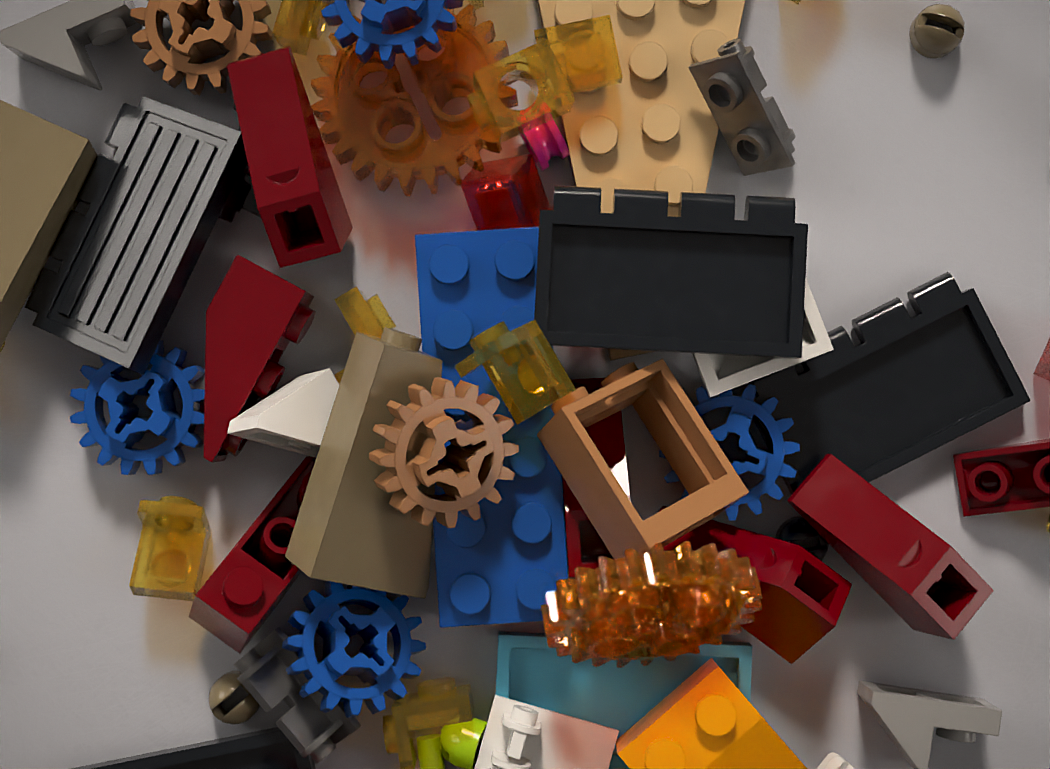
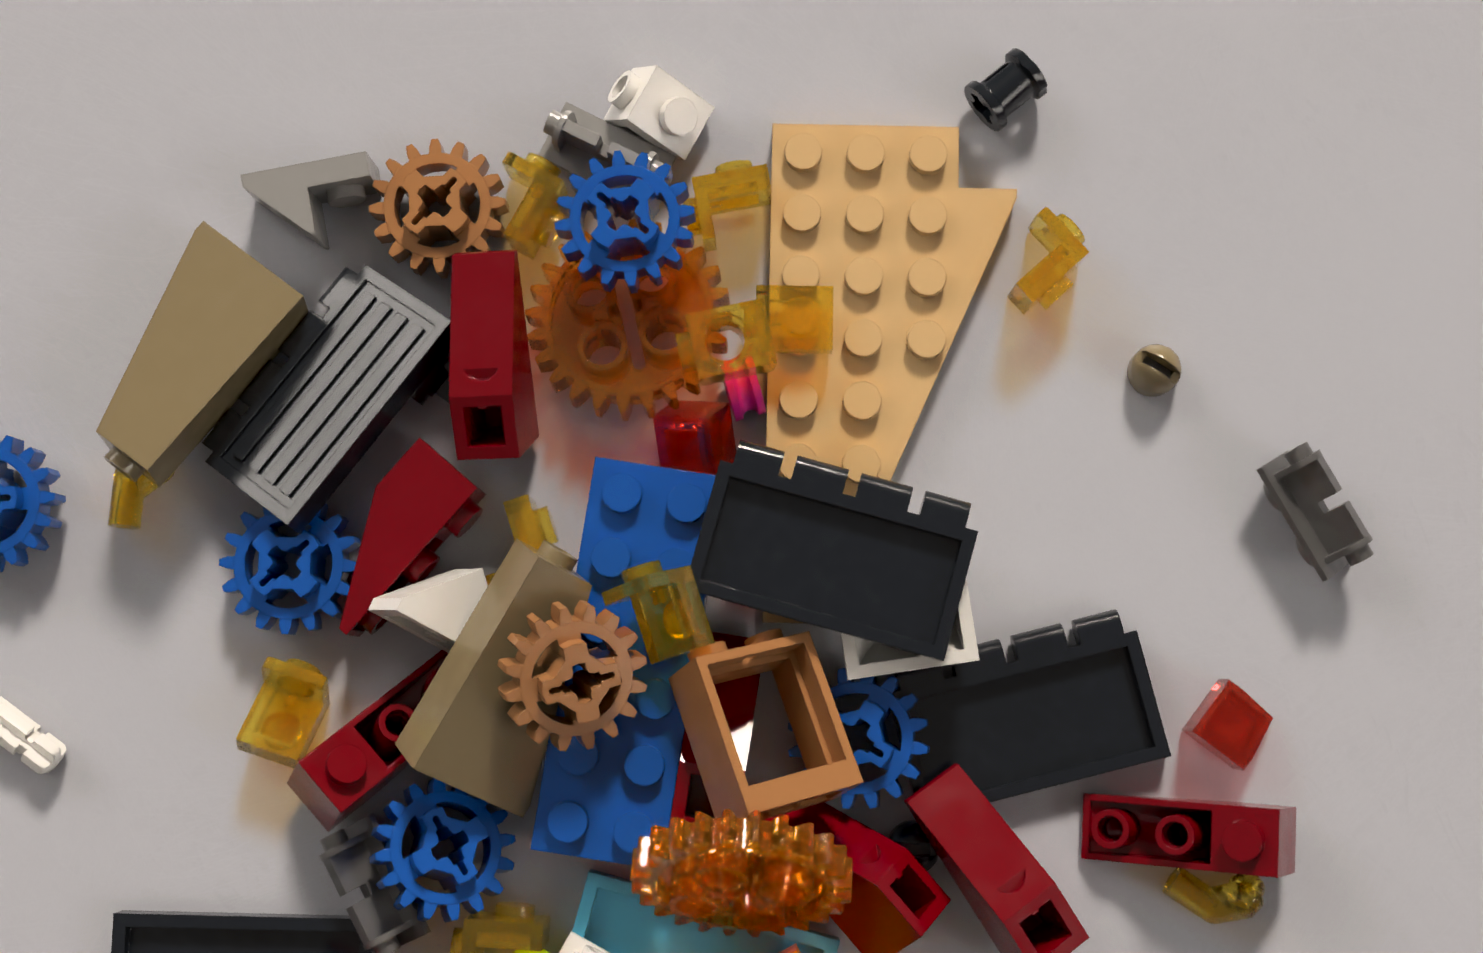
camera: 20 degrees right, 5 degrees down
(221, 691) = (302, 865): dark tan hinge -> none
(746, 119) = (950, 425): flat silver hinge -> none

